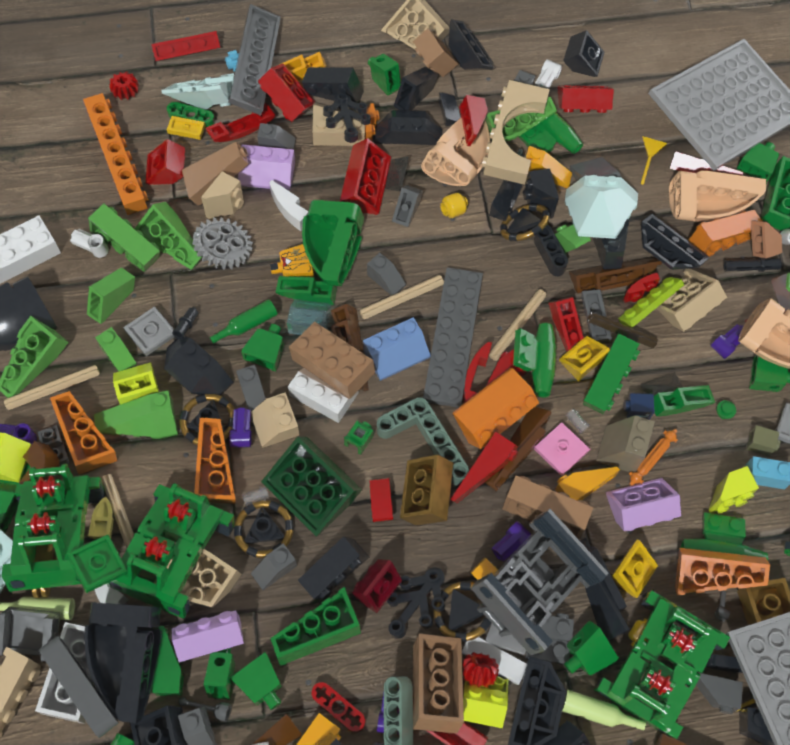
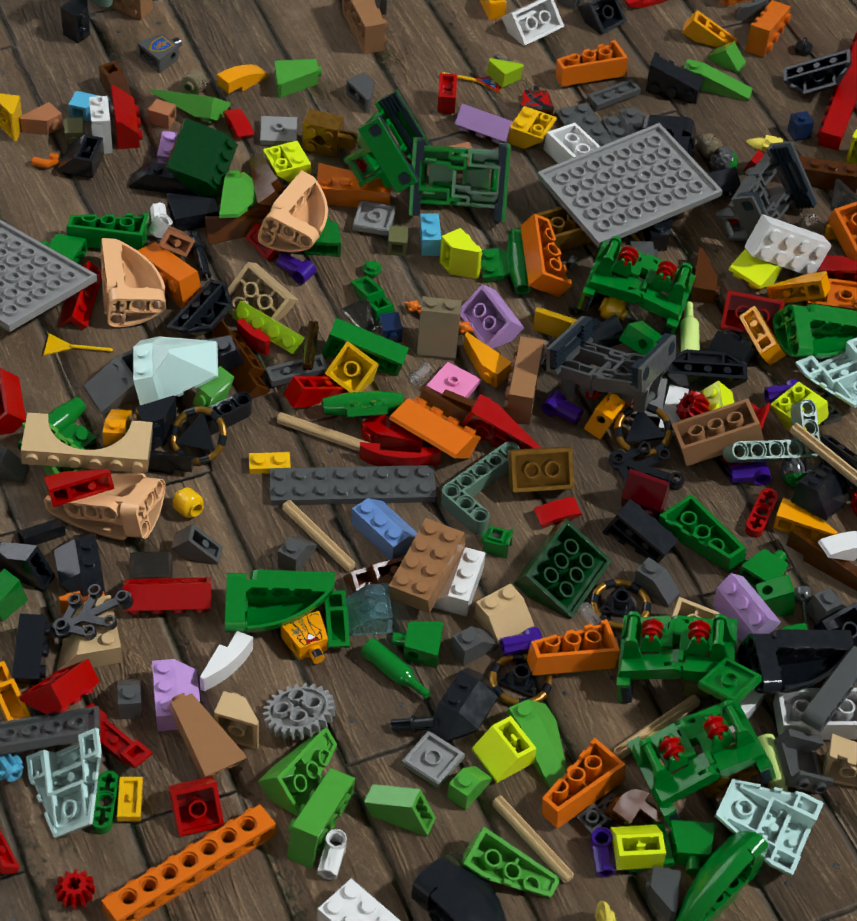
camera: 105 degrees left, 15 degrees down
(491, 276) = (262, 462): none -> yellow plate

